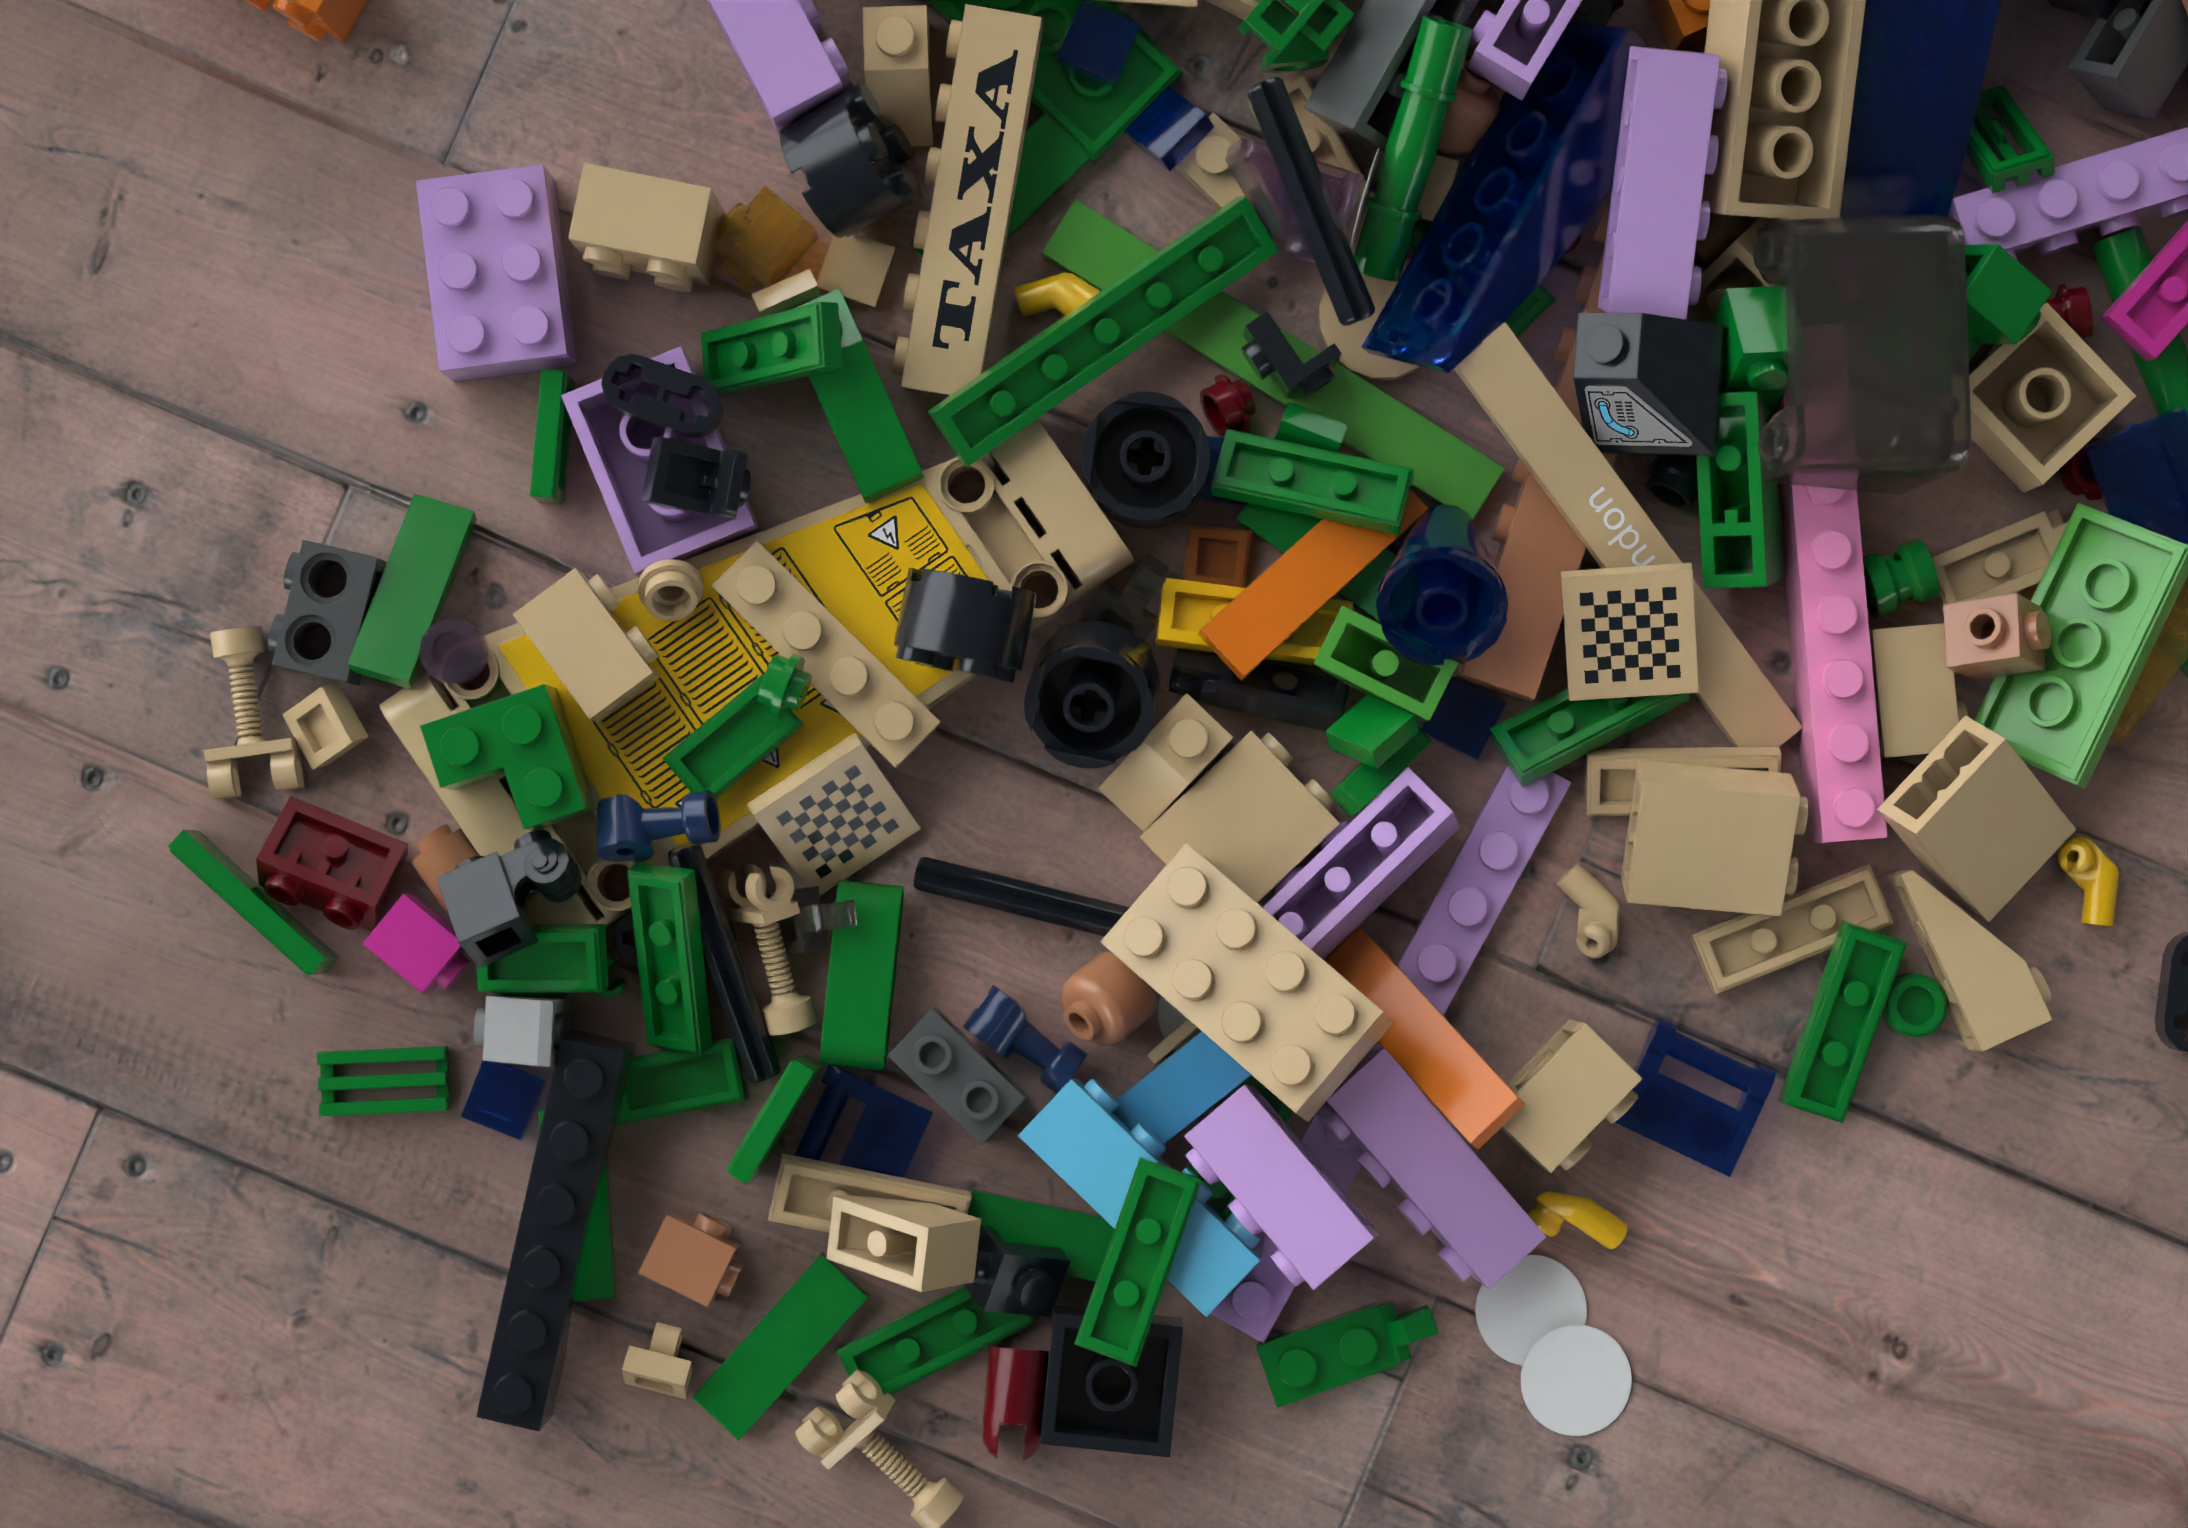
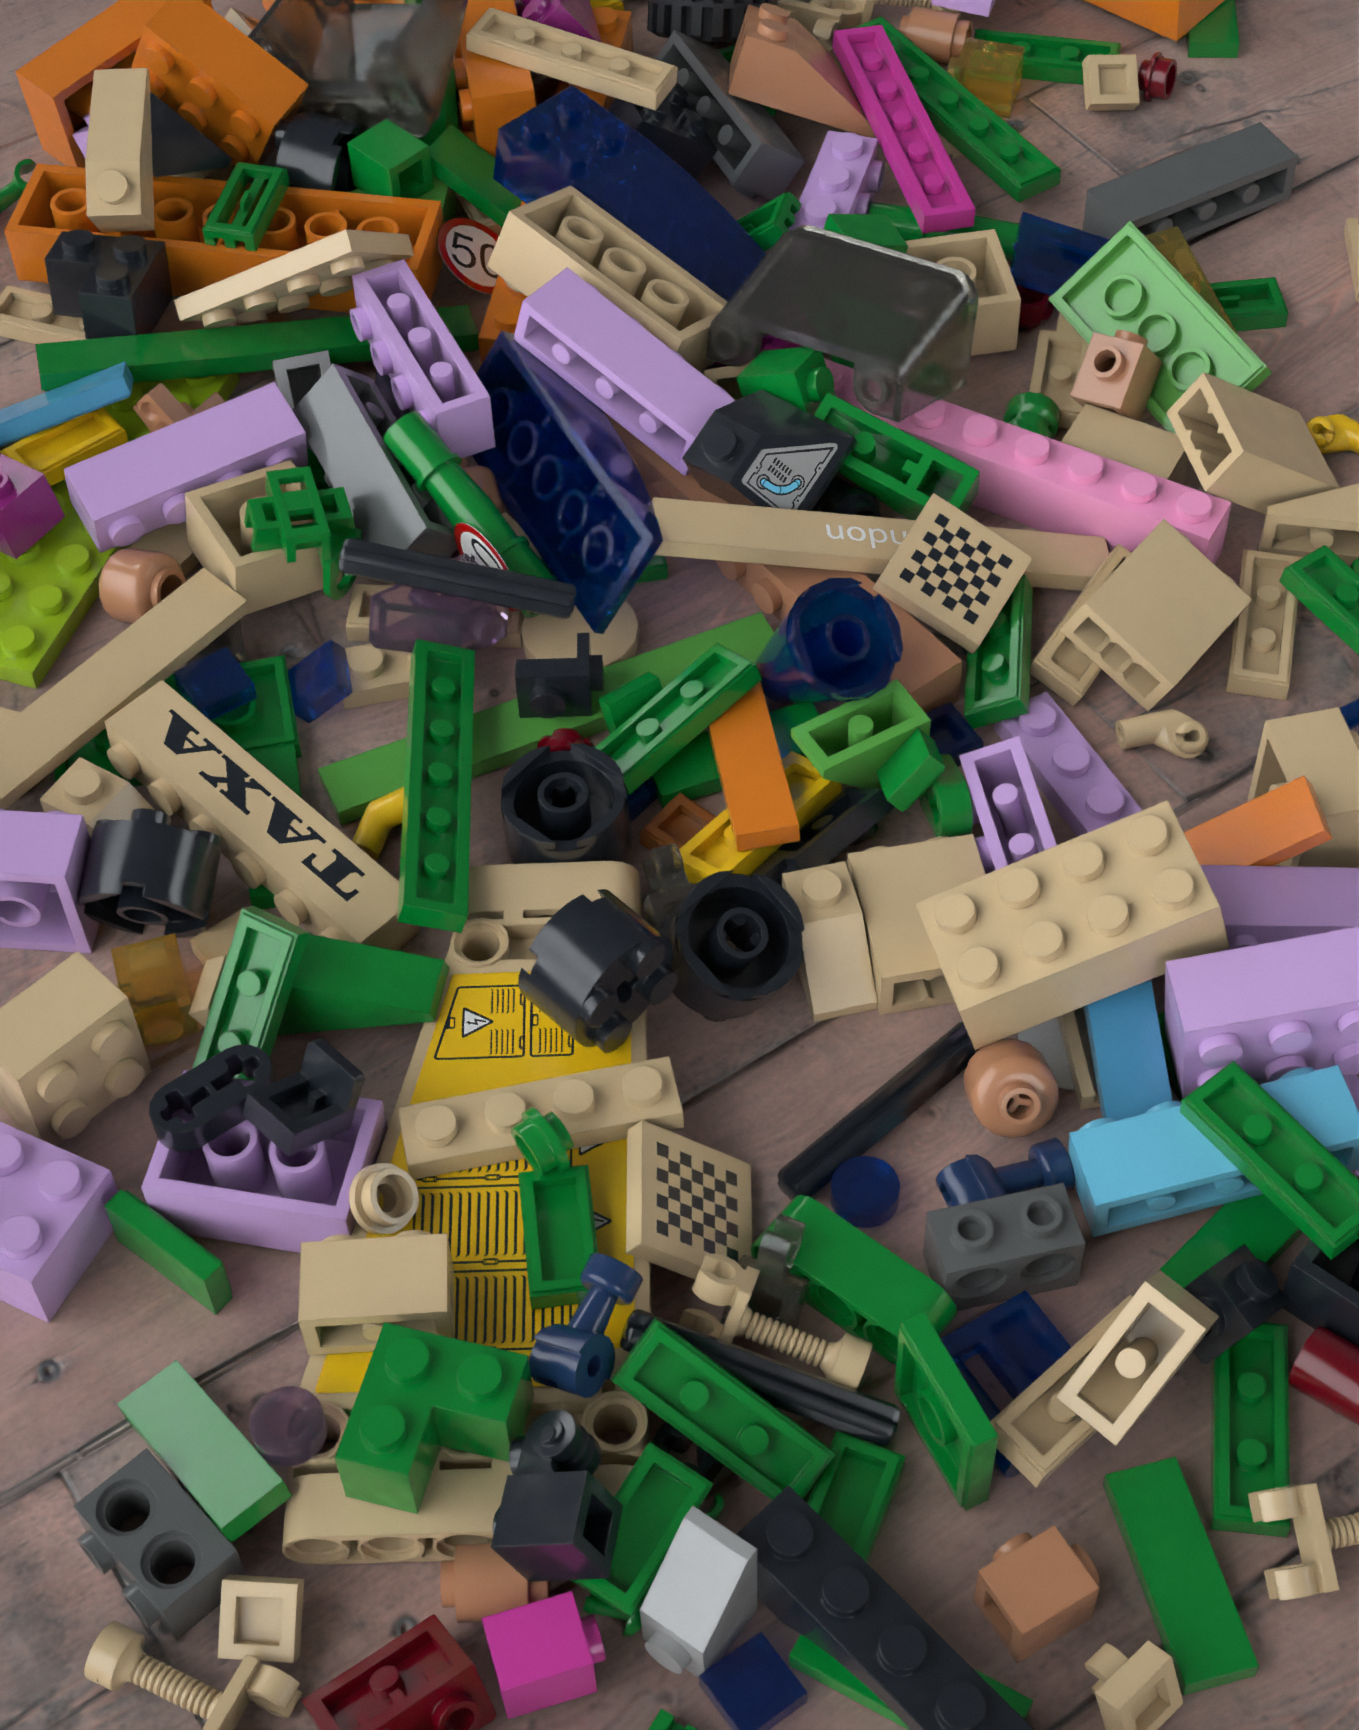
camera: 60 degrees left, 35 degrees down
(954, 932) = (865, 1191): none -> clear blue tile

